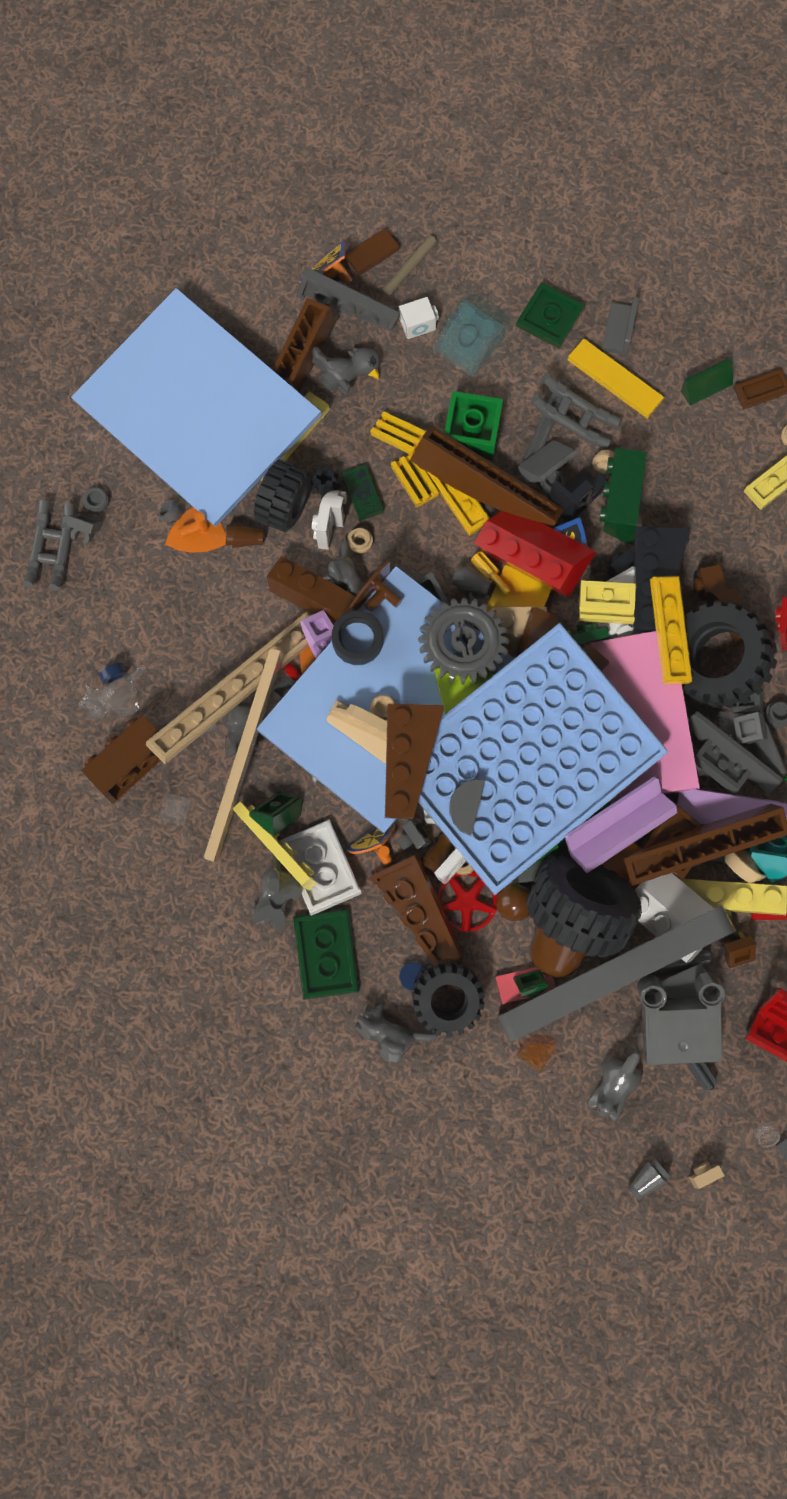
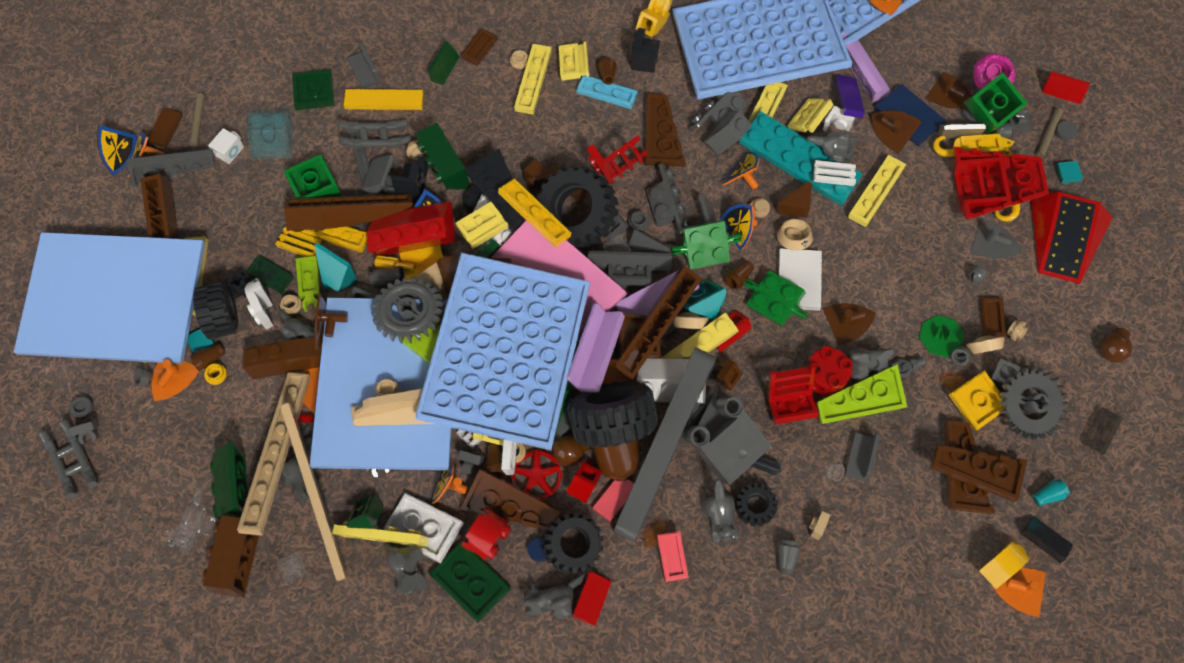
camera: 40 degrees left, 10 degrees down
(112, 673) = (177, 509): dark blue tile -> none
(175, 683) = (230, 481): none -> dark green slope
(239, 552) = (211, 369): none -> yellow plate
(245, 514) = (198, 341): none -> teal tile
(307, 242) = (114, 148): none -> shield
(317, 631) = (305, 377): lavender slope -> none
(341, 371) = (198, 211): dark grey animal -> none
(357, 616) = (331, 342): black tyre -> none
(373, 924) = (486, 534): none -> red brick
(388, 418) = (267, 219): yellow tile -> none
(394, 527) = (308, 280): none -> lime plate
(408, 752) = (423, 397): reddish brown wing -> none
(425, 539) = (334, 271): none -> teal slope
(426, 1064) = (592, 599): none -> red slope
(465, 804) = (488, 405): dark grey tile -> none
(507, 946) = (584, 481): none -> red brick
(531, 983) = (618, 493): dark green slope -> none
(535, 1086) = (672, 556): none -> coral tile
(677, 1103) = (756, 491): none -> black tyre
(750, 728) = (628, 238): dark grey plate -> none

